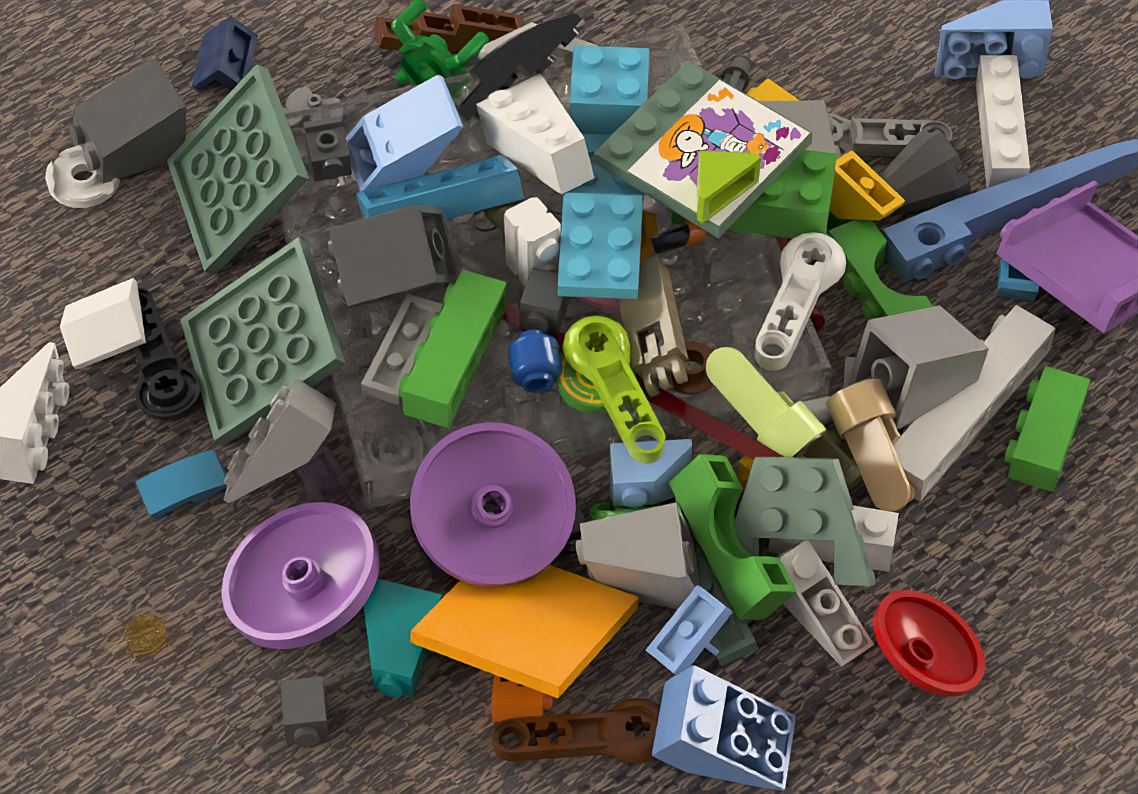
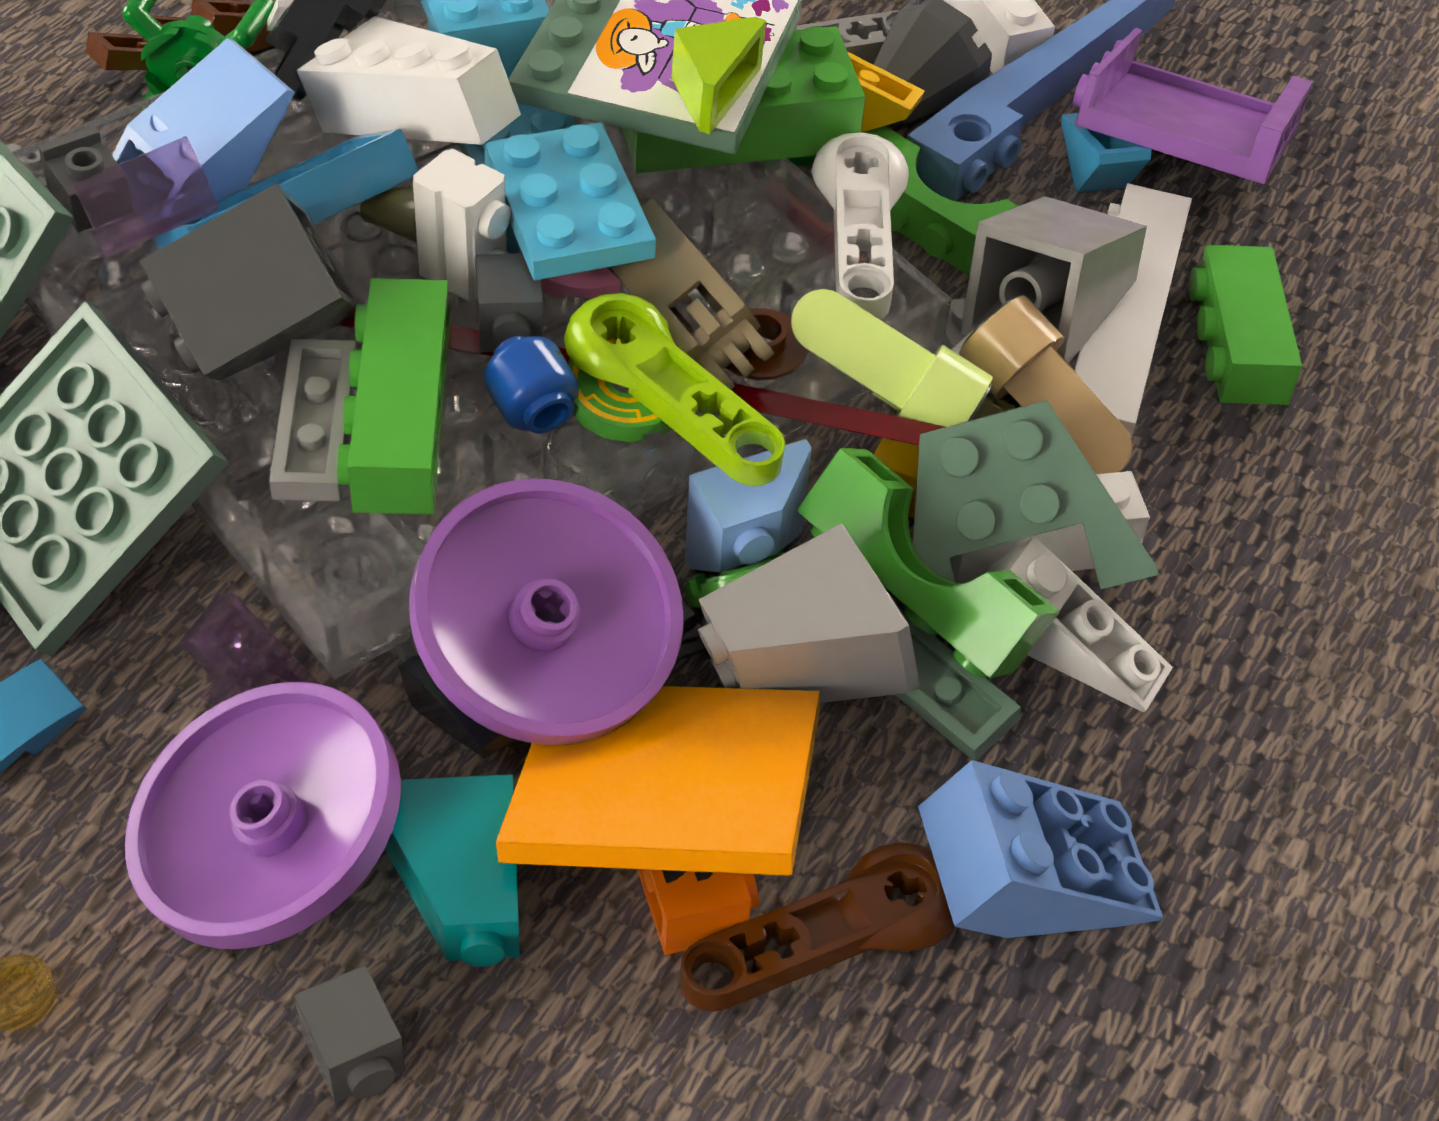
camera: 25 degrees left, 5 degrees down
(281, 441) = (163, 608): light grey slope -> none
(356, 175) = (146, 196): none -> clear purple panel
(682, 236) = (670, 176): black arm -> none
(689, 631) = (929, 716): light blue panel -> none
(928, 643) = (1263, 641): red dish -> none

